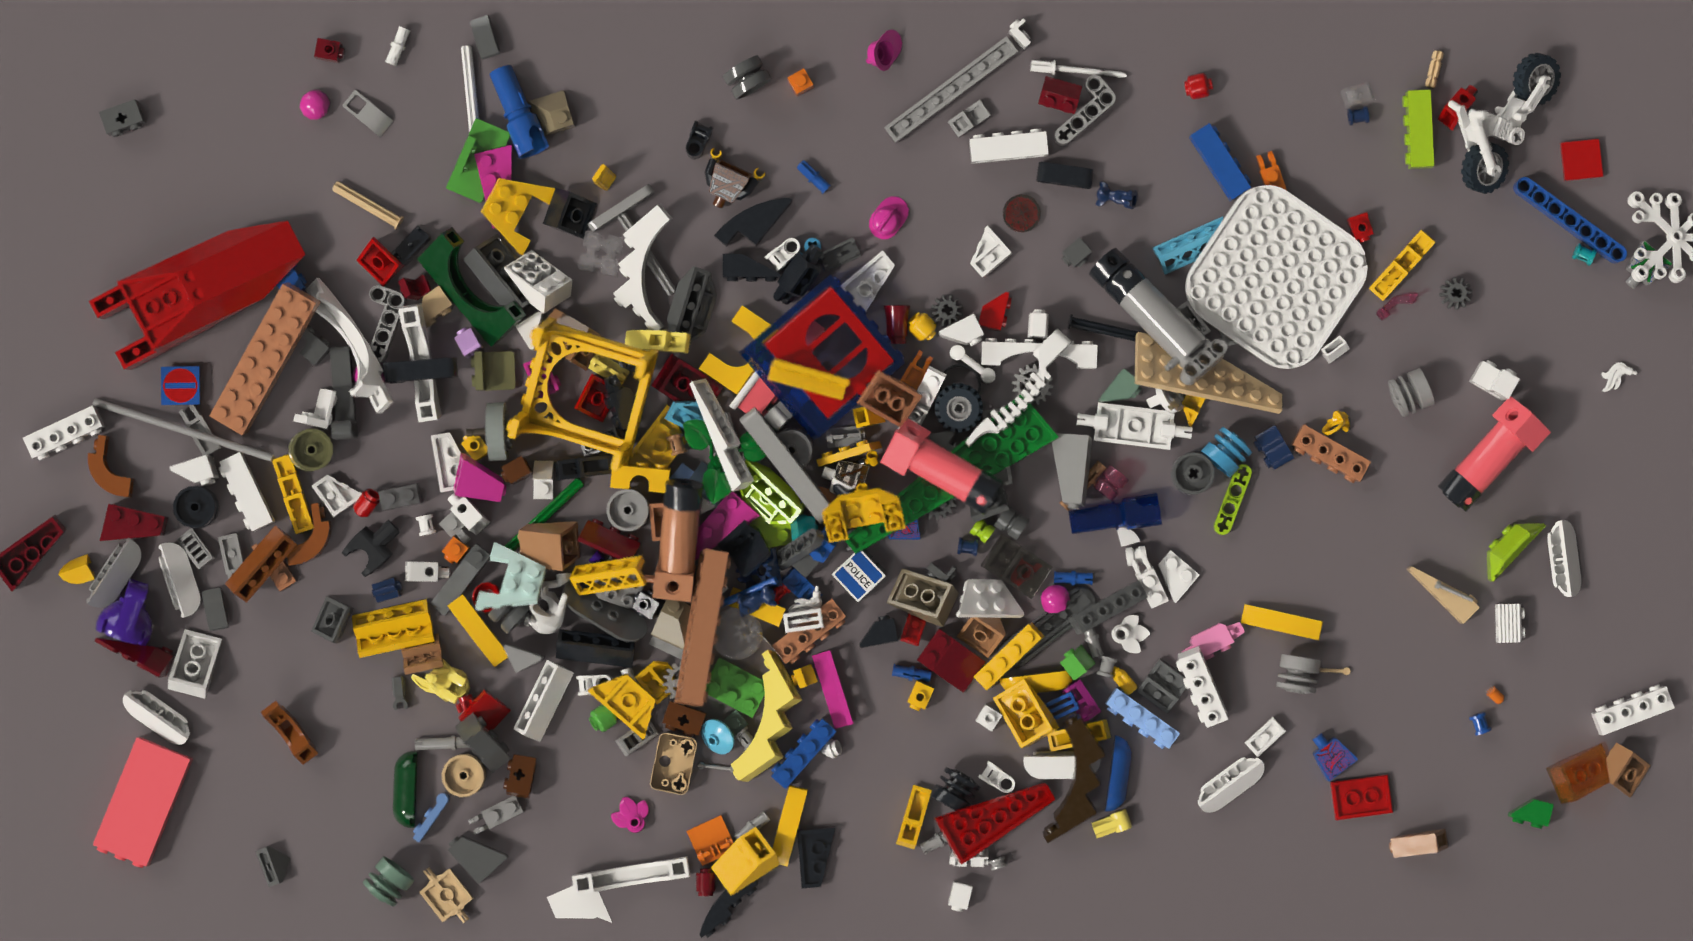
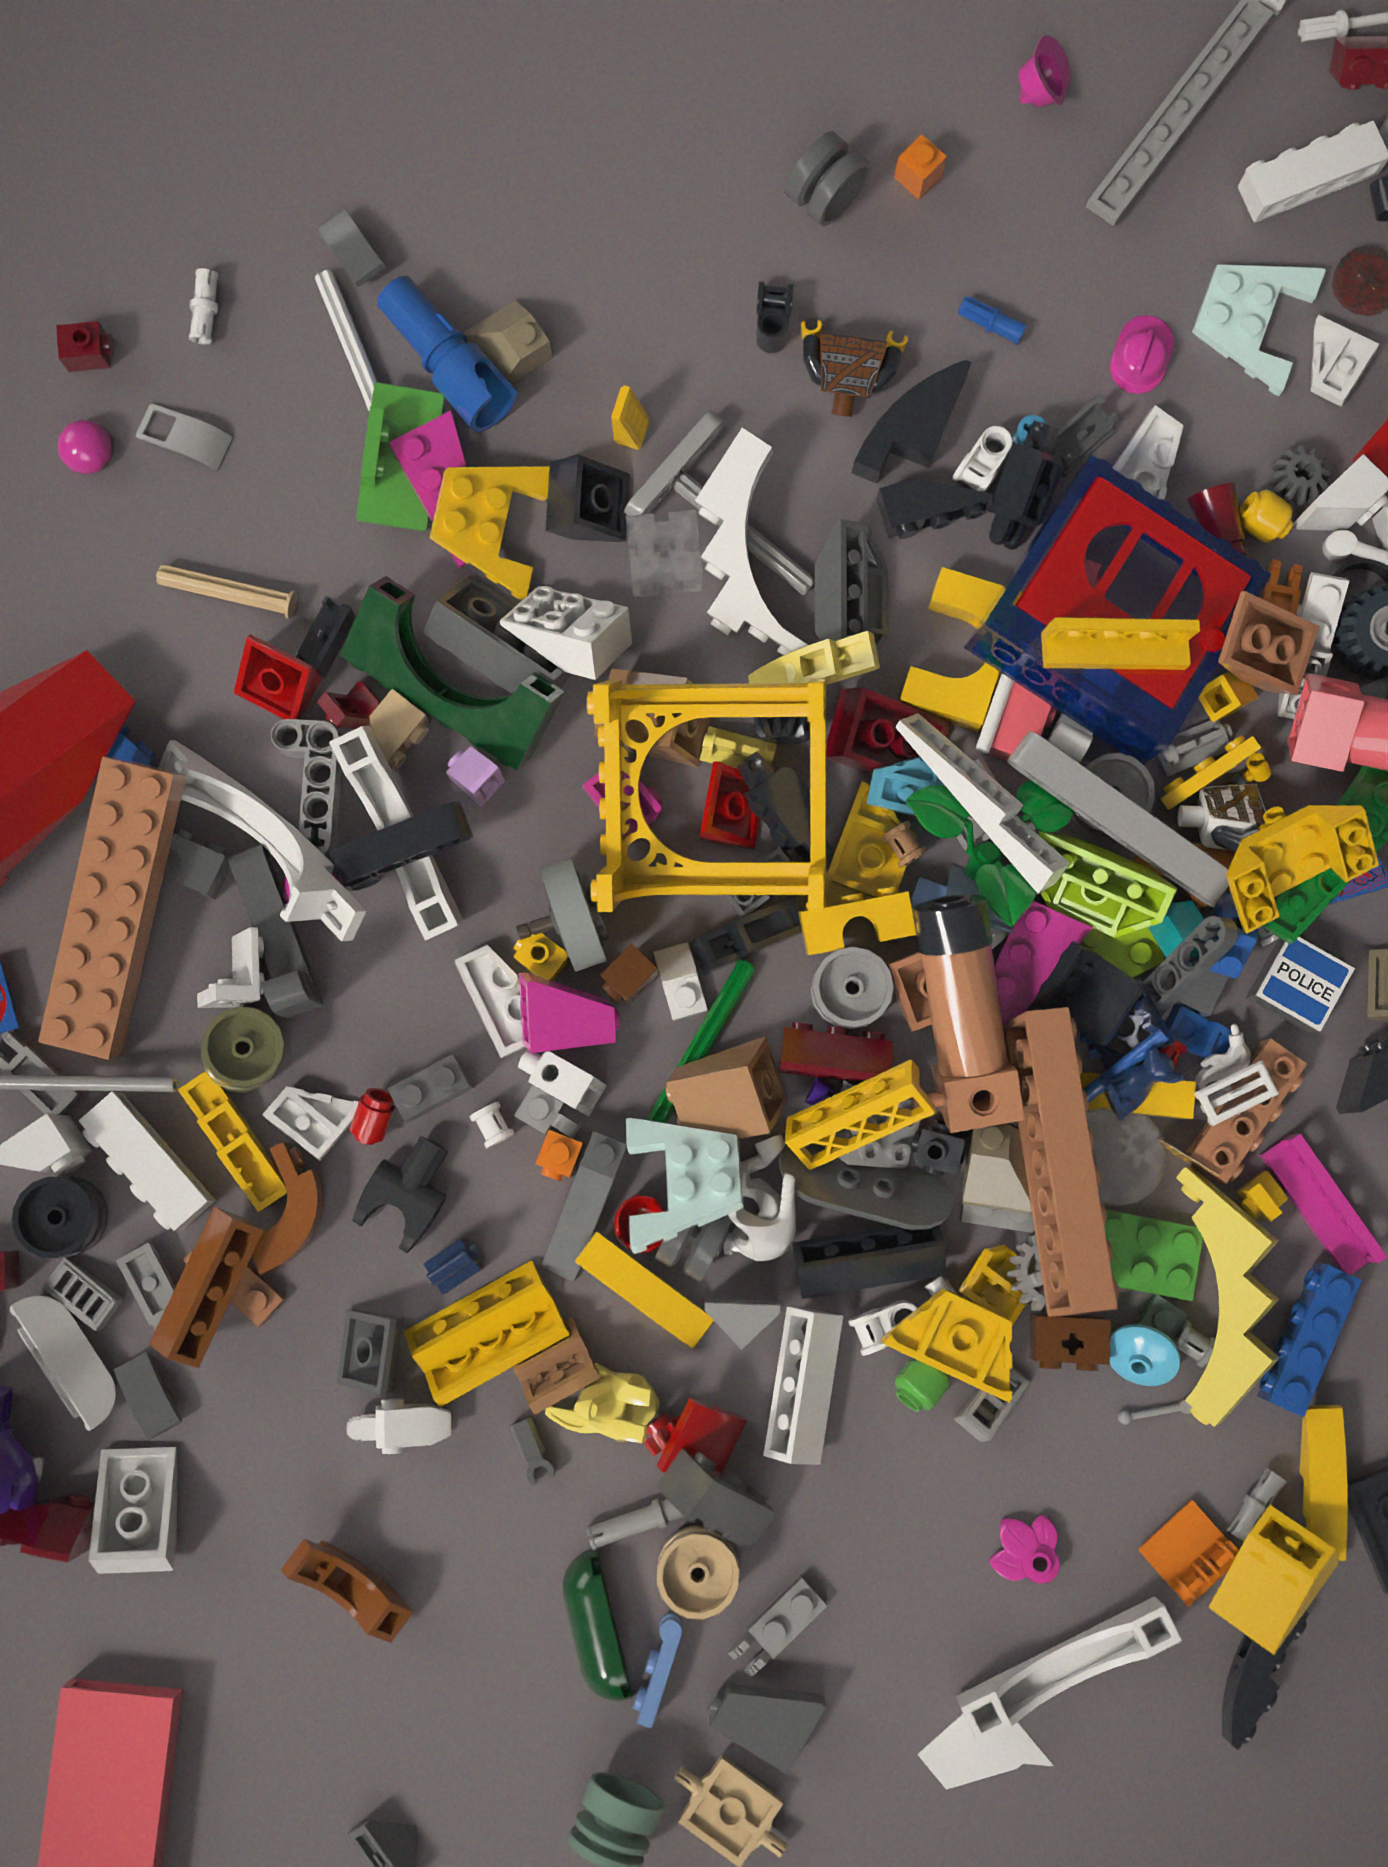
camera: 15 degrees left, 5 degrees down
(157, 716) = (91, 1631): white brick -> none
(337, 661) = (401, 1425): none -> white hinge
(416, 571) = (498, 1213): white torso -> none
(493, 370) = (534, 813): olive bracket -> none
(521, 787) = (810, 1518): reddish brown brick -> none
(526, 326) = (575, 723): white slope -> none
(680, 764) = (1089, 1430): tan axle -> none
(705, 882) = (1206, 1638): dark red brick -> none
(832, 749) = (1359, 1316): white plate -> none
(946, 211) = (1240, 308): none -> light aqua wing
(969, 118) = (1226, 148): light grey slope -> none

